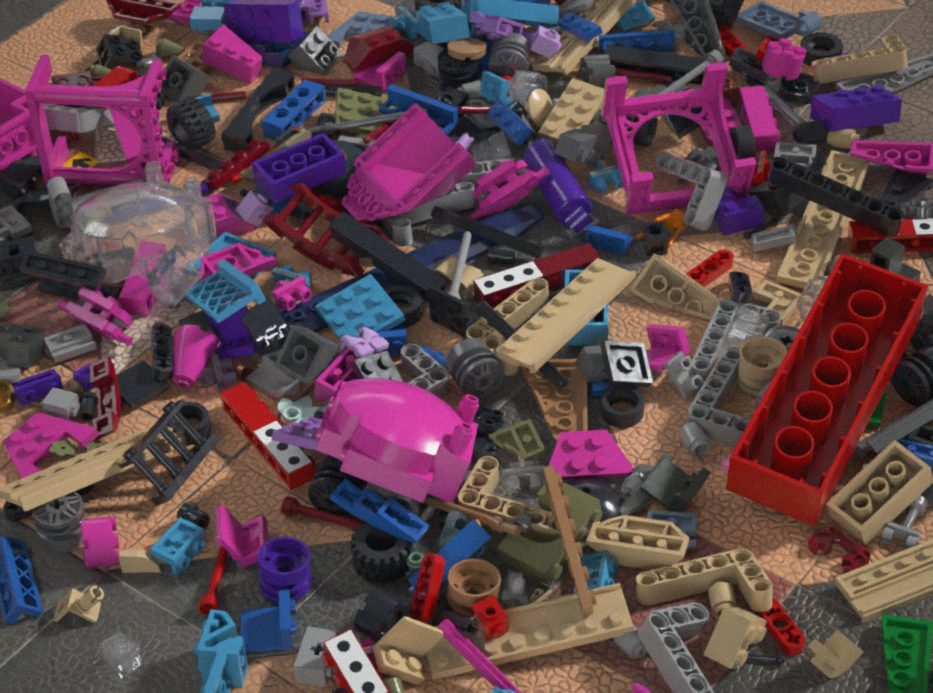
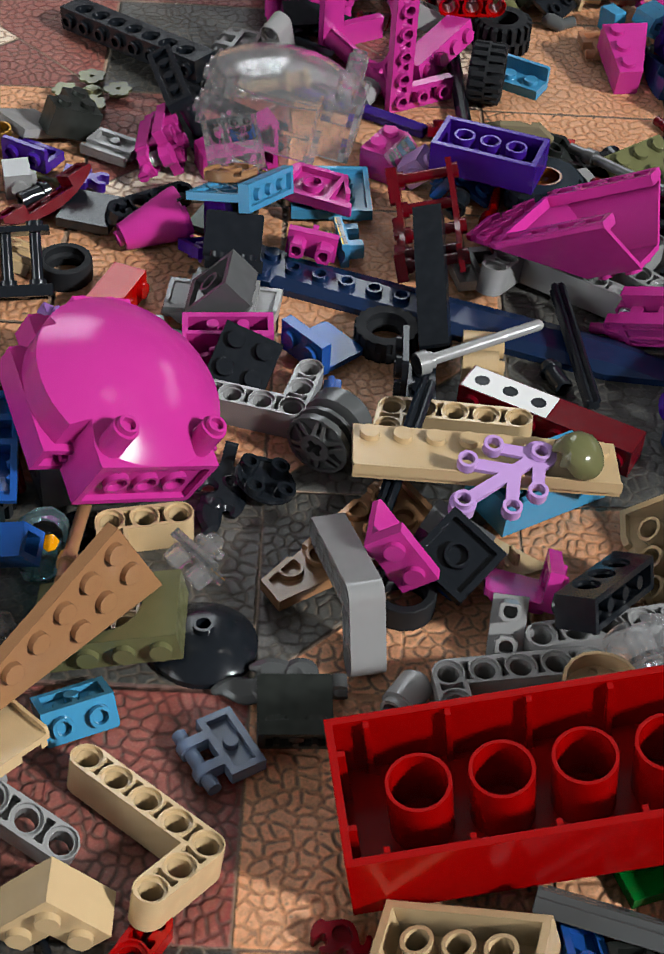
camera: 50 degrees right, 0 degrees up
(81, 160) = (375, 49): yellow sticker -> none
(168, 48) = (589, 20): olive cone -> none
(177, 35) = (611, 14): none -> dark azure piece
(183, 80) = (557, 47): dark grey slope -> none
(200, 291) = (230, 173): none -> medium nougat tile
(217, 375) = (153, 253): clear purple hips -> none
(227, 96) = (571, 85): dark red bar -> none
(242, 370) = (181, 272): copper hinge -> none
(272, 90) = (614, 105): black arch -> none
(294, 109) = (603, 129): blue brick -> none
(359, 307) = (337, 303): dark azure plate -> none
(364, 345) = (276, 326): lavender piece -> none
(520, 440) = (258, 532): olive wing -> none
(589, 456) = (272, 598): dark pink wing -> none
(594, 291) = (505, 474): none -> lavender plant
(608, 268) = (580, 454): none -> olive hair
(613, 407) = (359, 591): none -> light grey beam
(617, 383) = (398, 550): none -> dark pink bracket
(639, 541) = (155, 712): tan wedge -> none
(699, 323) = (603, 592): none -> black brick
(721, 596) = (123, 864): tan brick -> none

